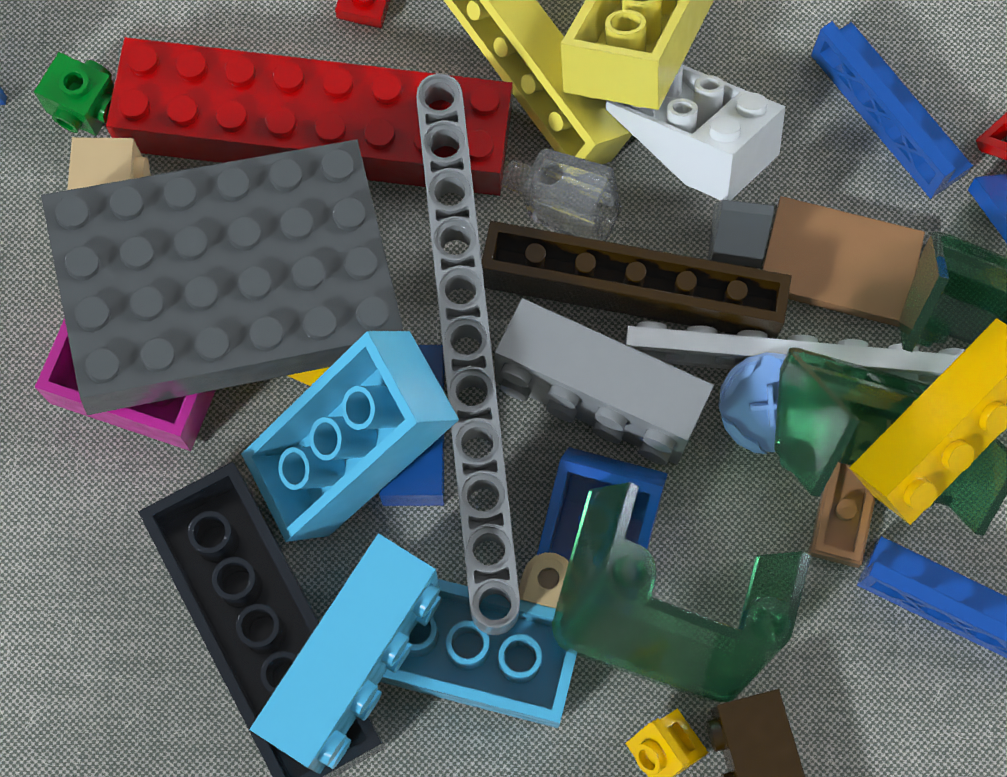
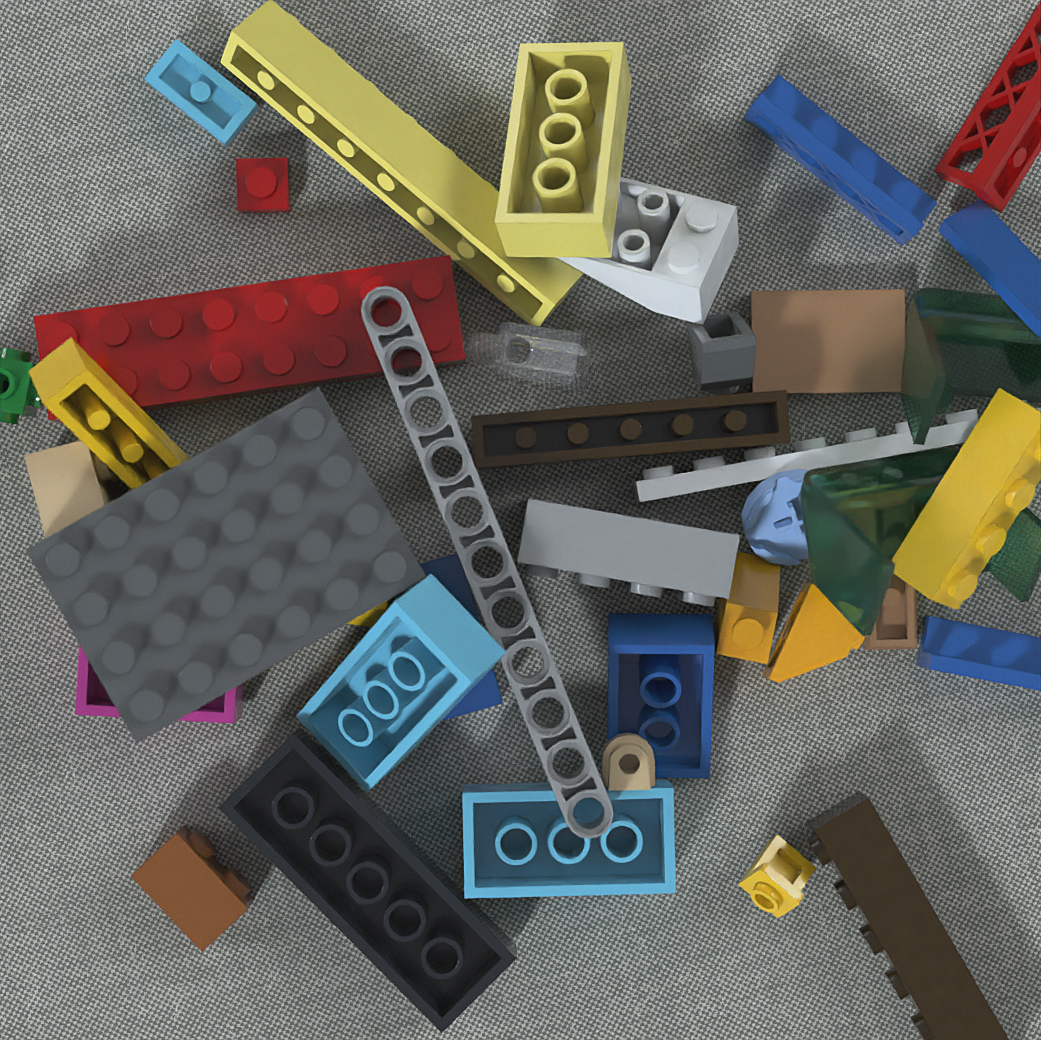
camera: 15 degrees left, 15 degrees up
(89, 594) = (194, 887): none -> dark orange brick
(150, 109) = (104, 416): none -> yellow brick
(348, 656) = (467, 905): medium azure brick -> none
(615, 621) = (693, 771): clear green windscreen -> none
(702, 481) = (749, 616): none -> light orange slope
(766, 519) = (811, 637): none -> light orange slope

